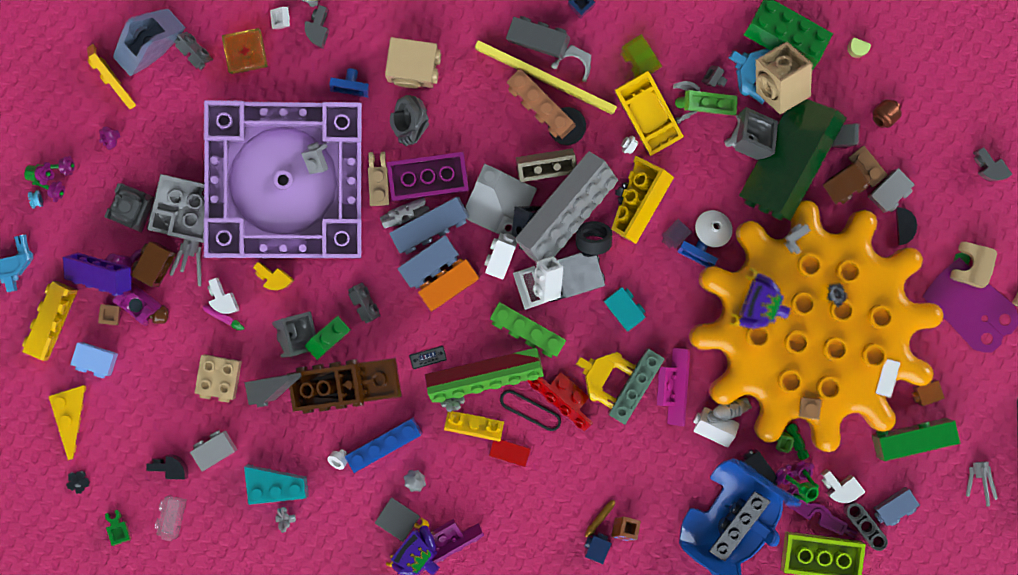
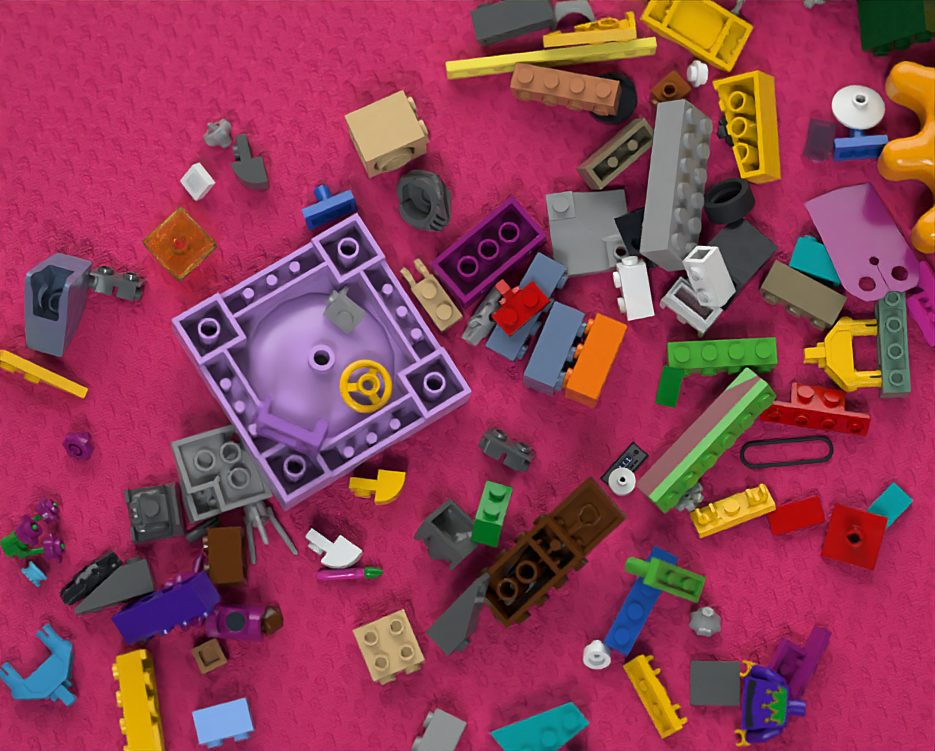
camera: 25 degrees left, 10 degrees down
(67, 222) = (90, 577): none -> black hinge
(84, 240) = (122, 586): none -> dark grey slope
(150, 236) = (202, 529): none -> dark grey pin
(217, 202) = (288, 433): none -> medium lavender window
(300, 221) = (374, 381): none -> yellow piece
(356, 504) = (653, 695): none -> yellow plate
(406, 444) = (667, 577): none -> bright green piece
(422, 223) = (518, 306): none -> red hinge
(425, 366) = (618, 487): none -> white tile
(484, 327) = (669, 386): none -> green sticker
(536, 487) = (854, 536): none -> red tile
(564, 482) = (891, 503): none -> teal tile
(583, 81) = (596, 32): none -> yellow wing
(600, 324) = (802, 296): none -> dark tan brick
(603, 146) = (669, 89): none -> dark orange brick
(660, 304) = (854, 230): none -> magenta piece

